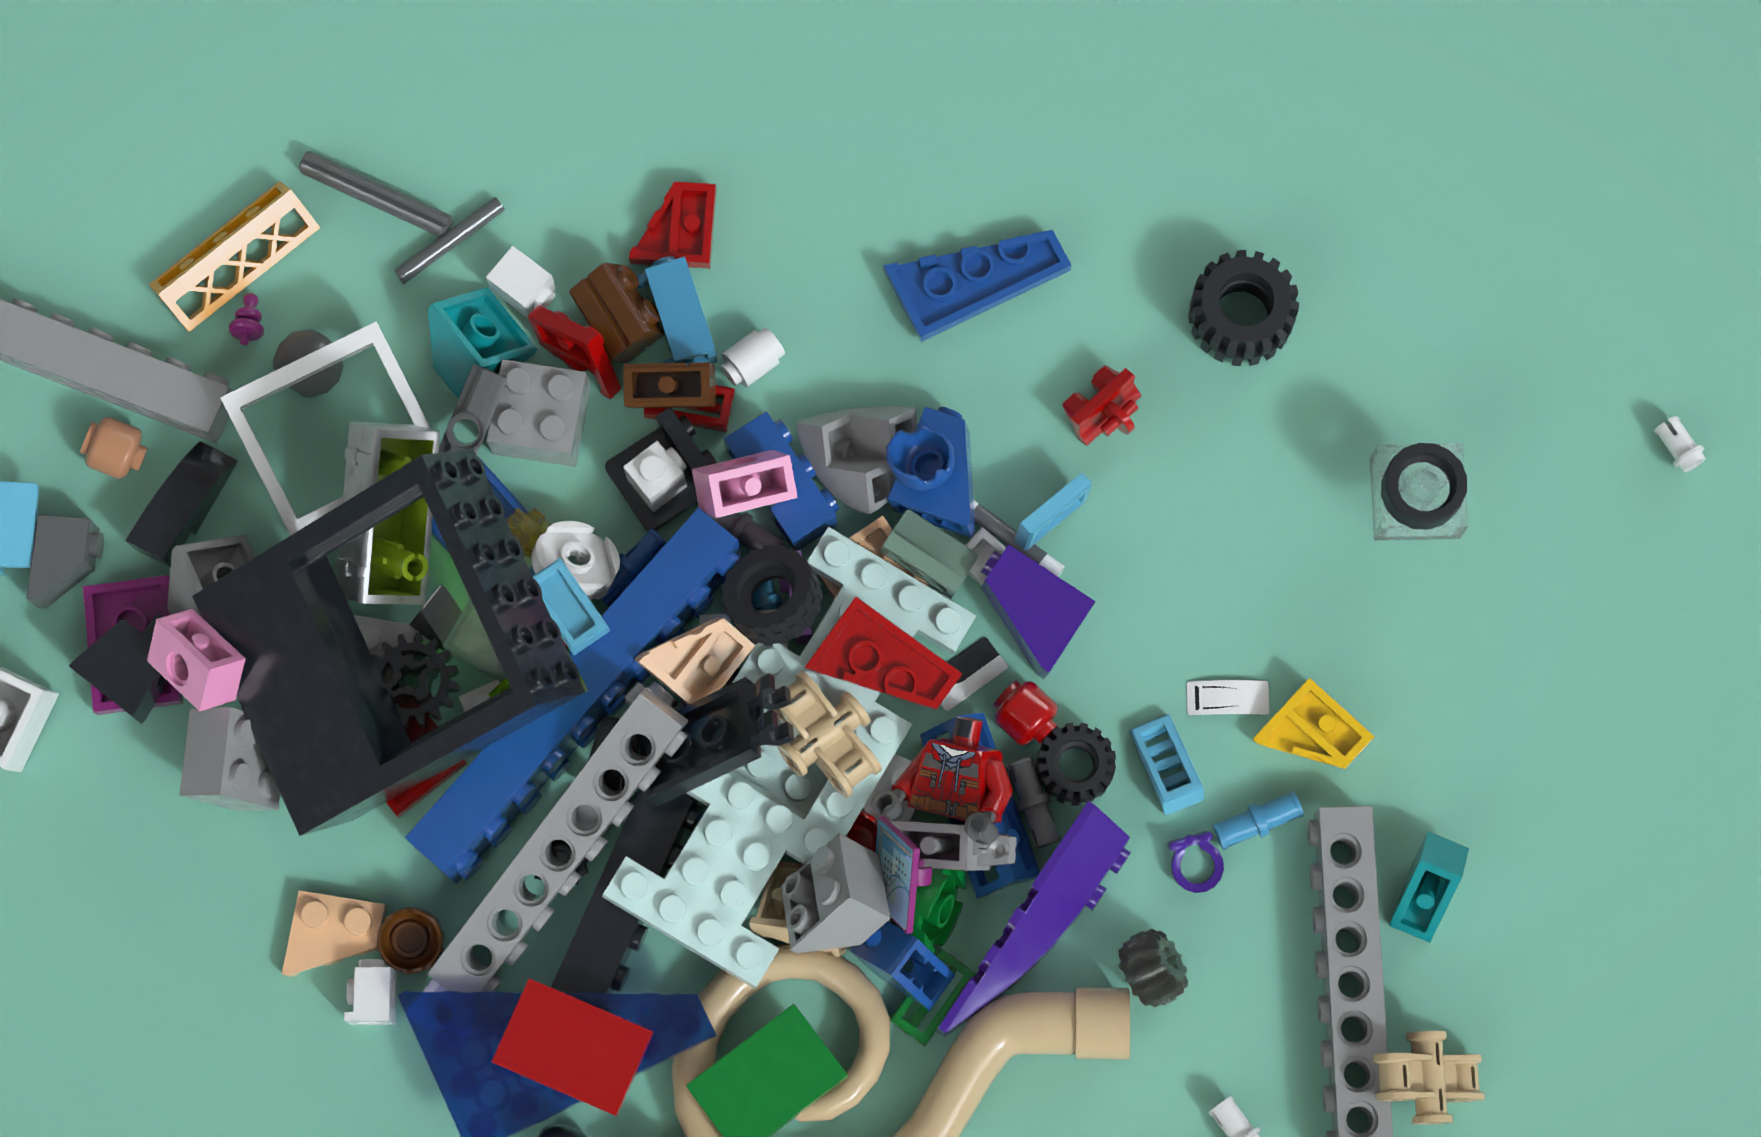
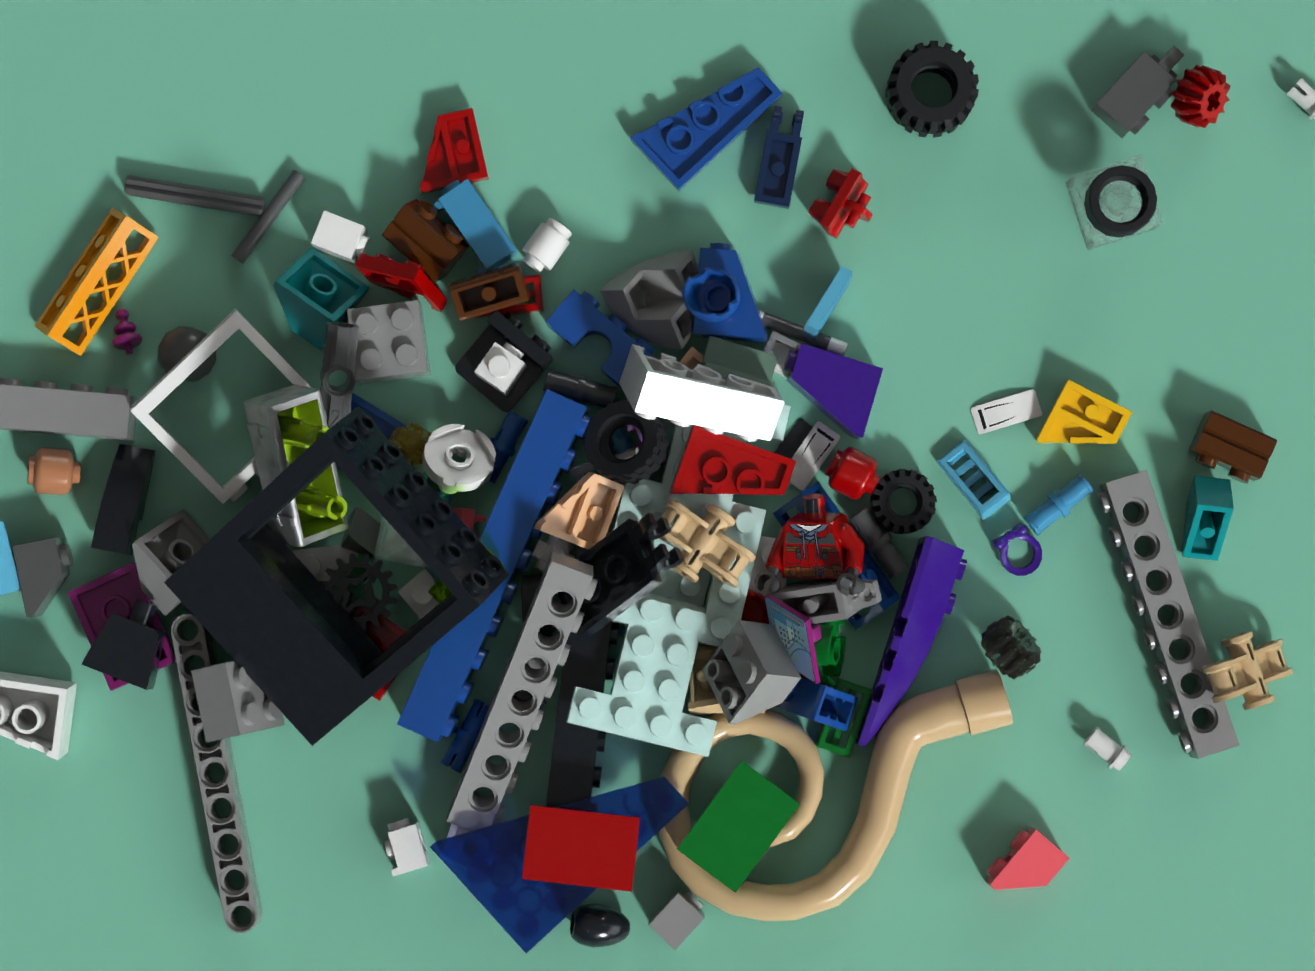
camera: 20 degrees left, 10 degrees up
(180, 906) = (212, 790): none -> light grey beam
(196, 659) = (184, 633): bright pink brick -> none
(330, 930) = (357, 805): light nougat wing -> none
(410, 940) = (423, 796): reddish brown hair -> none
(470, 898) = (465, 737): none -> blue pin
(570, 607) = (469, 501): medium azure tile -> none
(744, 483) = (577, 358): bright pink brick -> none
(872, 566) = (699, 396): none -> white wedge
(984, 681) = (812, 454): none -> white sticker
(1045, 341) = (779, 162): none -> dark blue hinge
(1480, 378) = (1137, 91): none -> dark grey hinge
(1482, 812) = (1232, 446): none -> reddish brown brick
(1552, 401) = (1200, 96): none -> red gear

